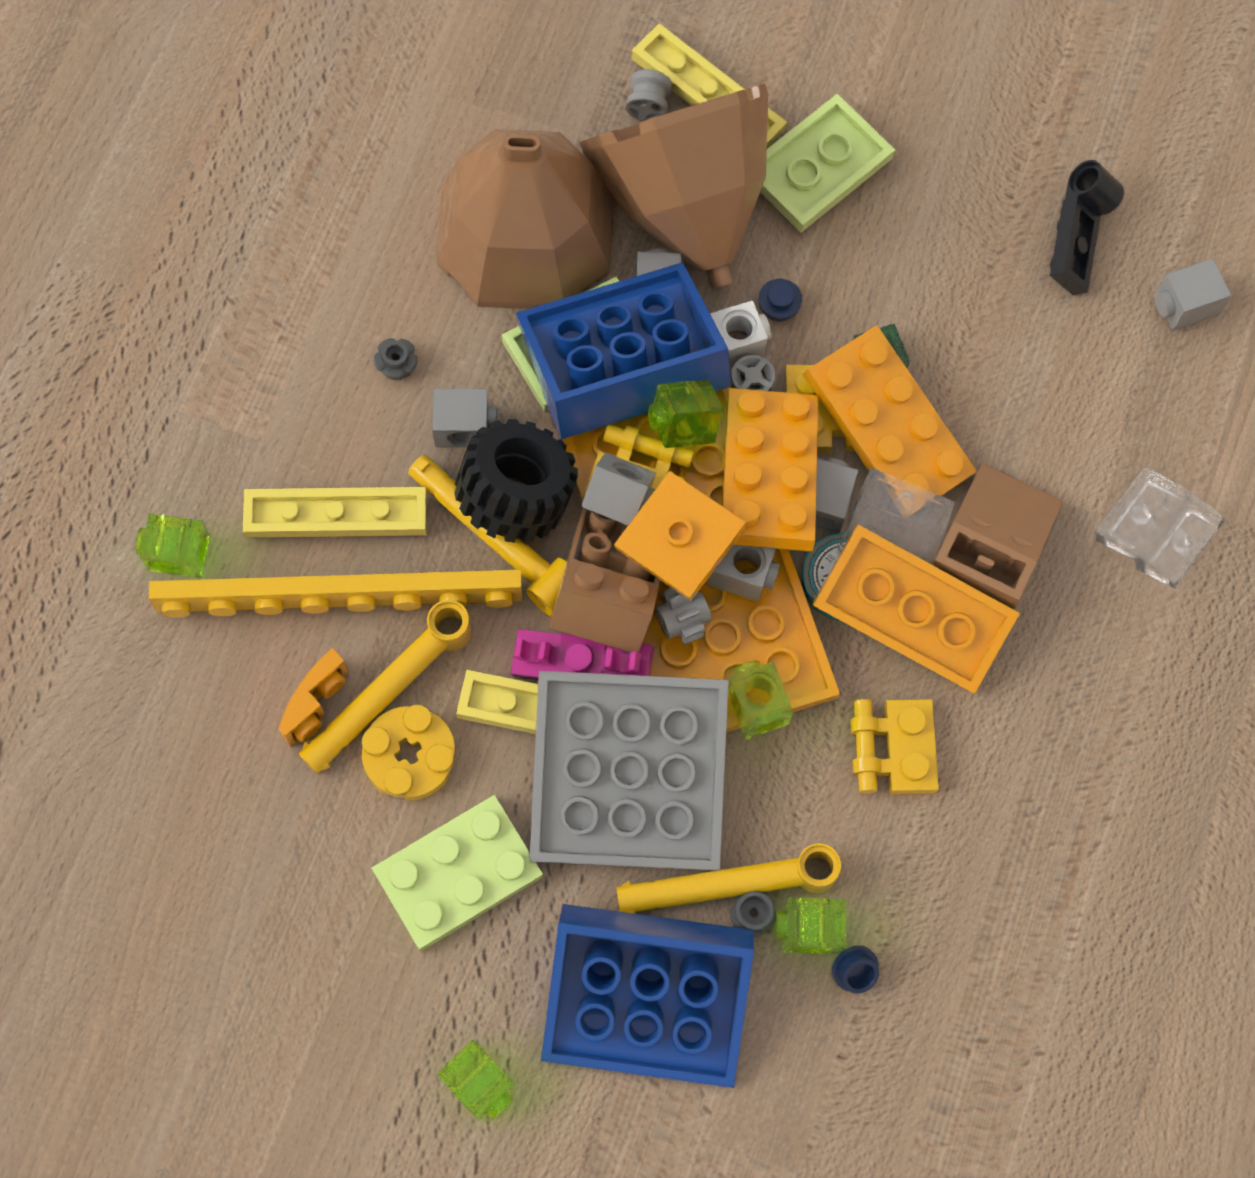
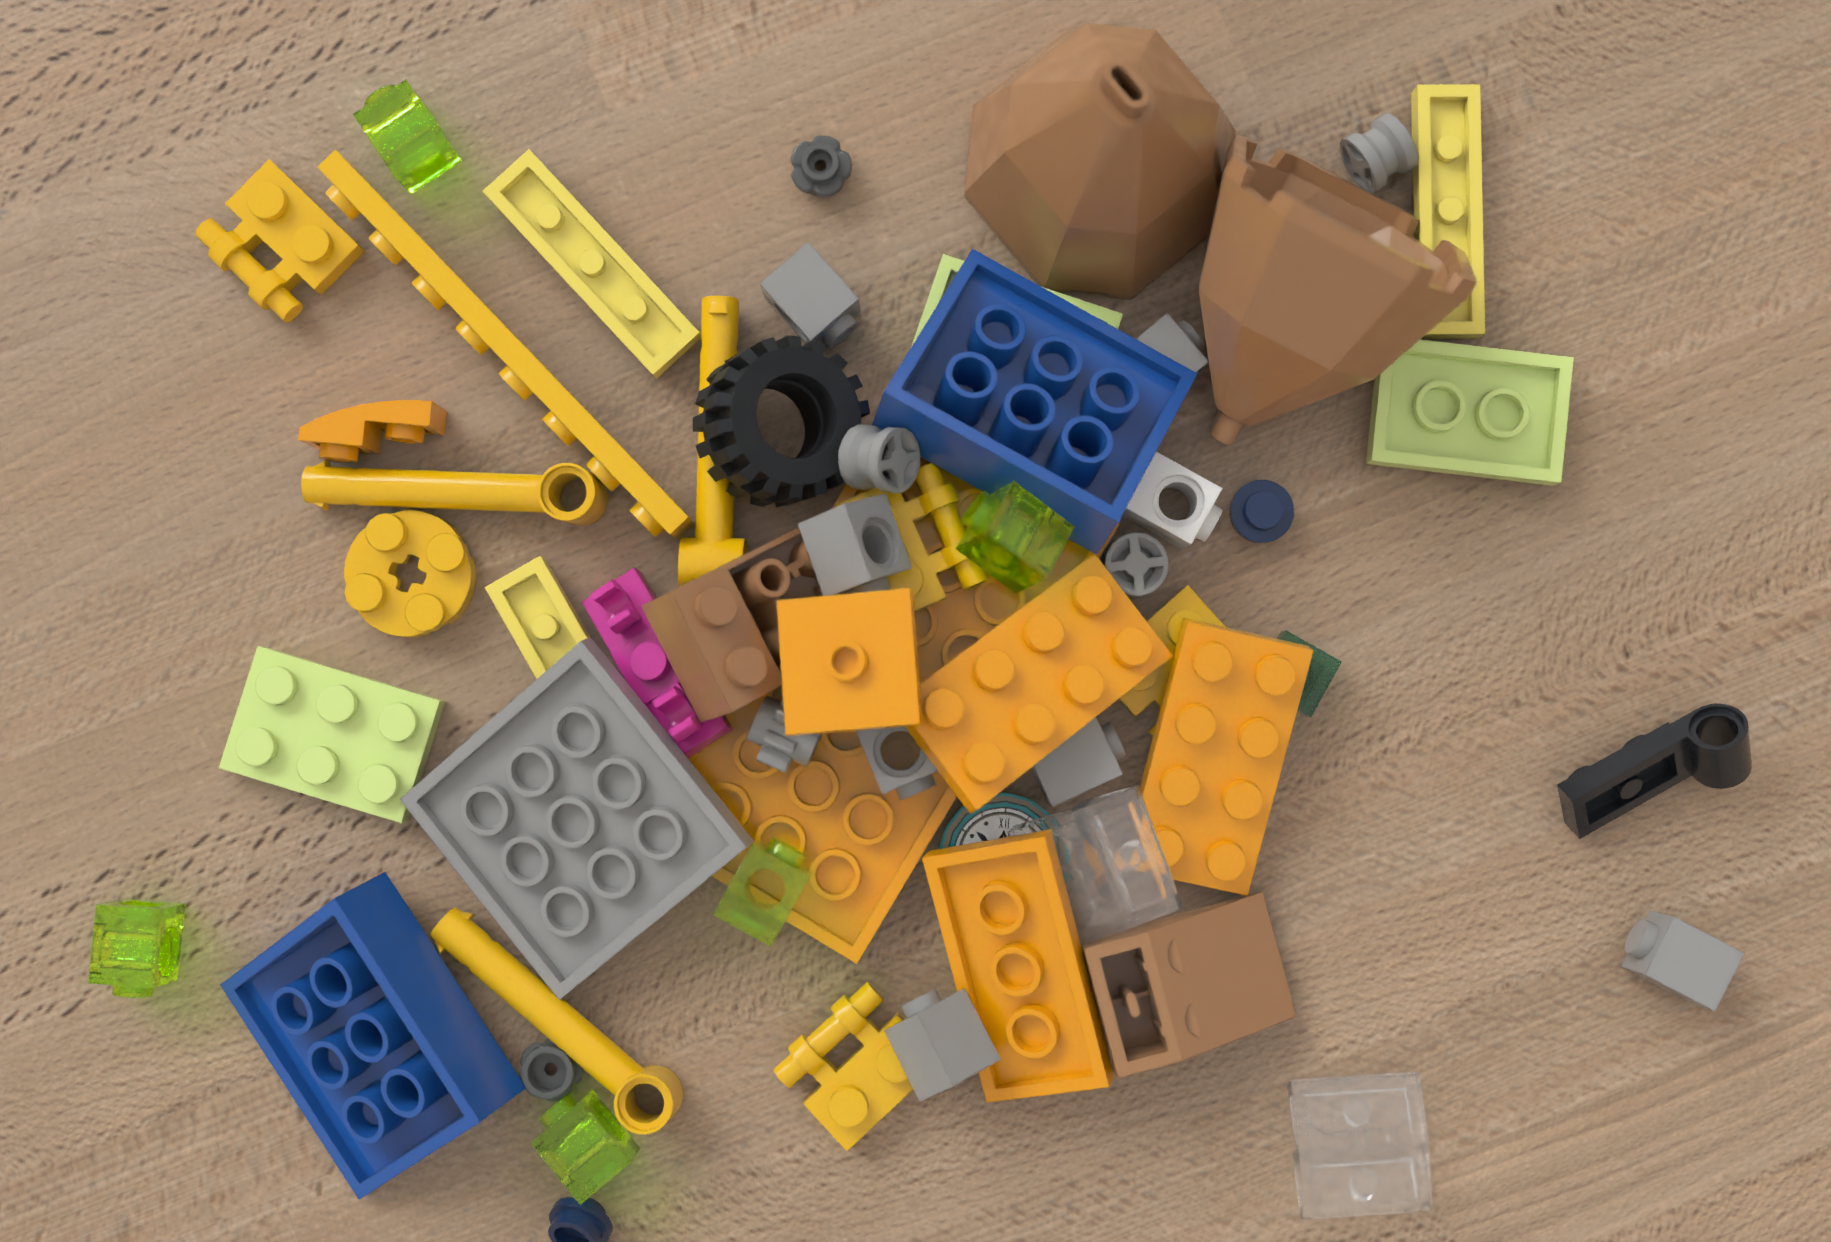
camera: 50 degrees right, 15 degrees up
(159, 652) = (293, 227): none -> yellow plate
(583, 443) = (879, 458): none -> light grey wheel
(921, 682) = (941, 1042): none -> light grey brick

